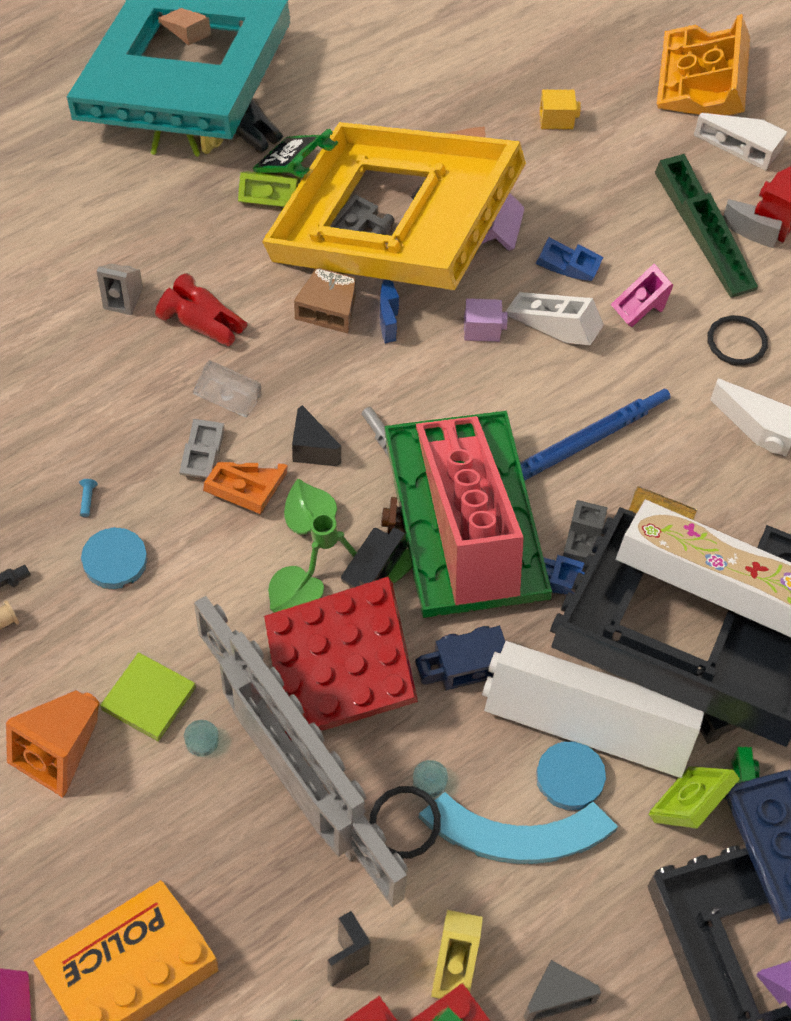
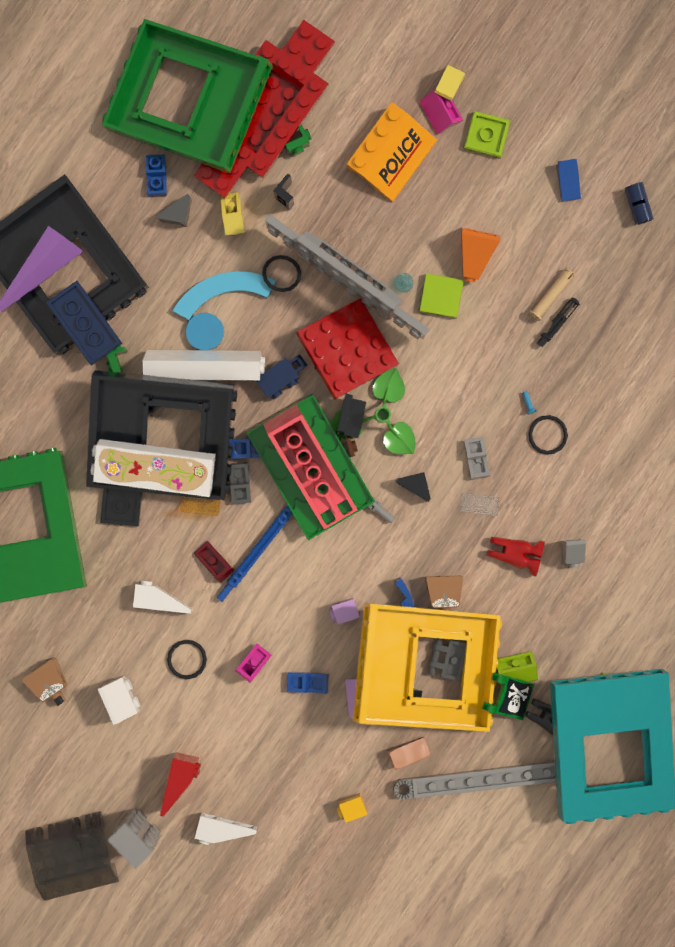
camera: 165 degrees right, 30 degrees up
(108, 448) = (549, 451): none -> black piece
(114, 558) = (496, 370): dark azure tile -> none
(187, 25) = (621, 768): nougat slope -> none
(245, 483) = (441, 443): orange wing -> none
(378, 91) = (477, 780): none -> light grey plate
(430, 777) = (277, 303): clear light blue tile -> none
(562, 317) = (302, 631): white slope -> none
(659, 443) = (214, 561): none -> dark red slope
(693, 796) = (137, 335): lime tile -> none
(705, 70) = (265, 885): light orange piece -> none
(705, 224) = (229, 744): dark green slope -> none
(743, 221) = (206, 755): light grey slope -> none

